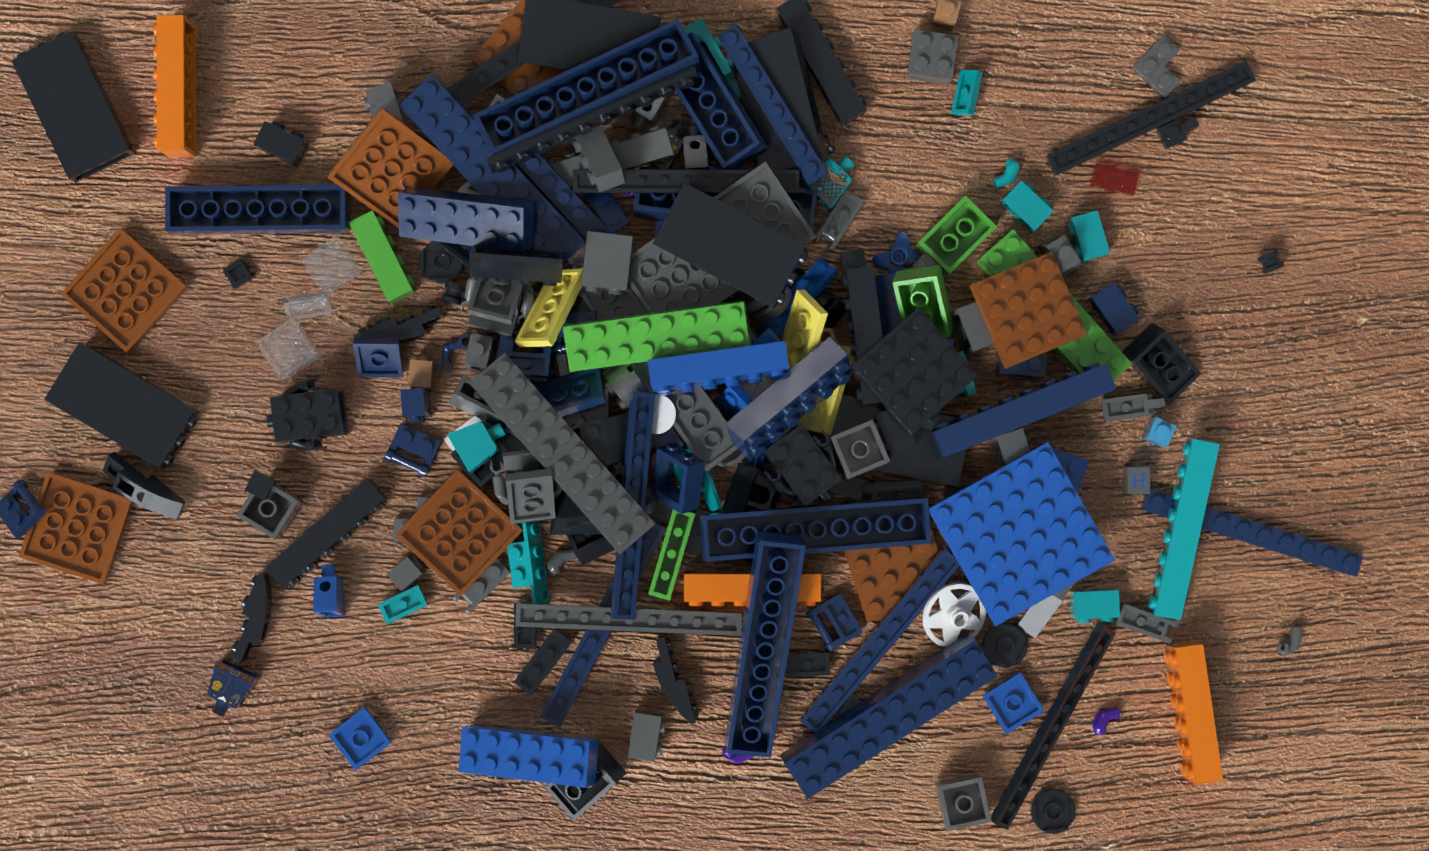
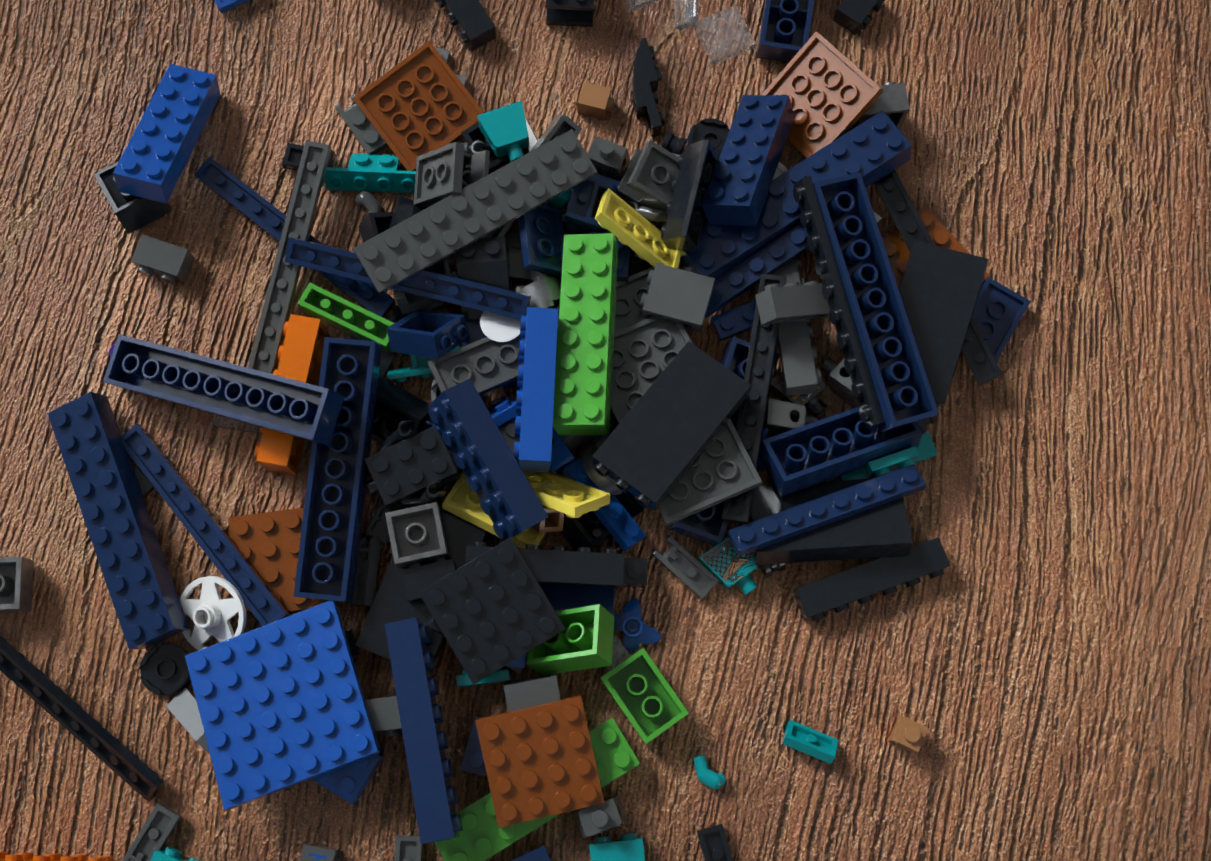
camera: 95 degrees right, 10 degrees down
(378, 357) = (619, 59): dark blue plate -> none
(382, 256) = (724, 82): bright green brick -> none
(403, 604) = (358, 44): teal plate -> none
(406, 572) = (388, 50): dark grey brick -> none
(416, 404) = (562, 85): dark blue brick -> none
(416, 443) = (523, 86): dark blue plate -> none
(446, 352) = (615, 131): dark blue arm -> none
(543, 661) = (266, 170): black plate -> none
(676, 690) = (203, 298): black slope -> none
(807, 664) = (197, 440): black plate -> none
(840, 617) = (238, 489): dark blue plate -> none
(931, 57) = (858, 707): dark grey brick -> none
(1012, 703) = (98, 665): blue plate -> none
(1027, 206) = (665, 789): teal brick -> none
(1095, 604) = (185, 782): teal brick -> none
(1102, 718) = (54, 767): dark purple arm -> none

